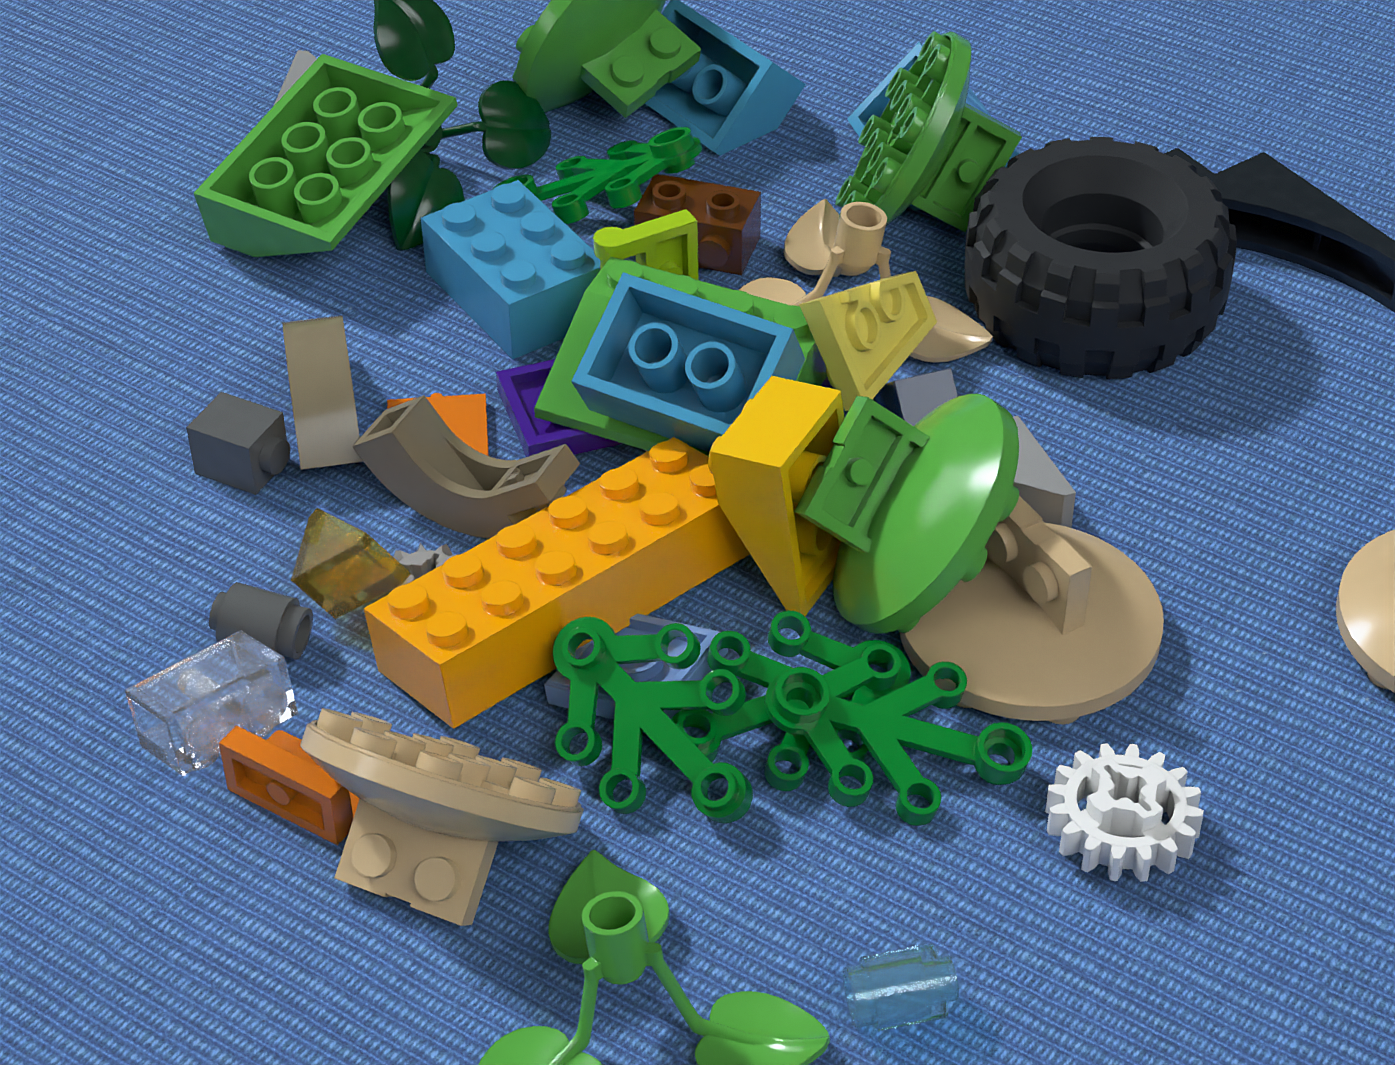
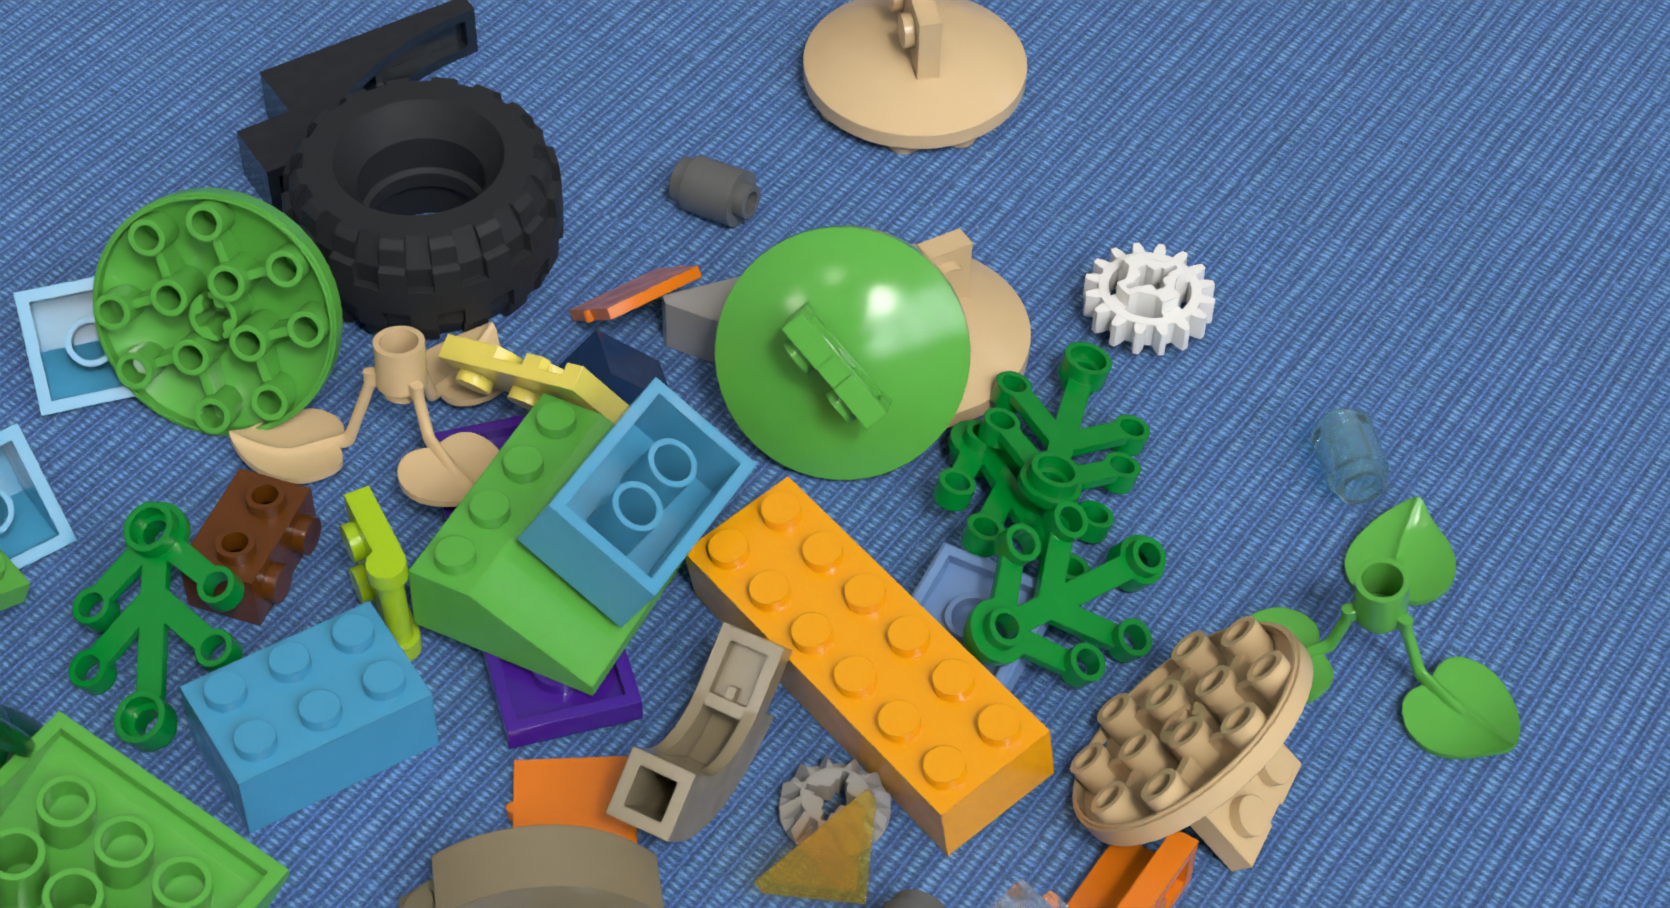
camera: 90 degrees left, 5 degrees up
(762, 475) = (807, 428): yellow slope -> none
(1037, 414) = (635, 293): none -> piece
(1212, 468) = (714, 190): none -> dark grey brick

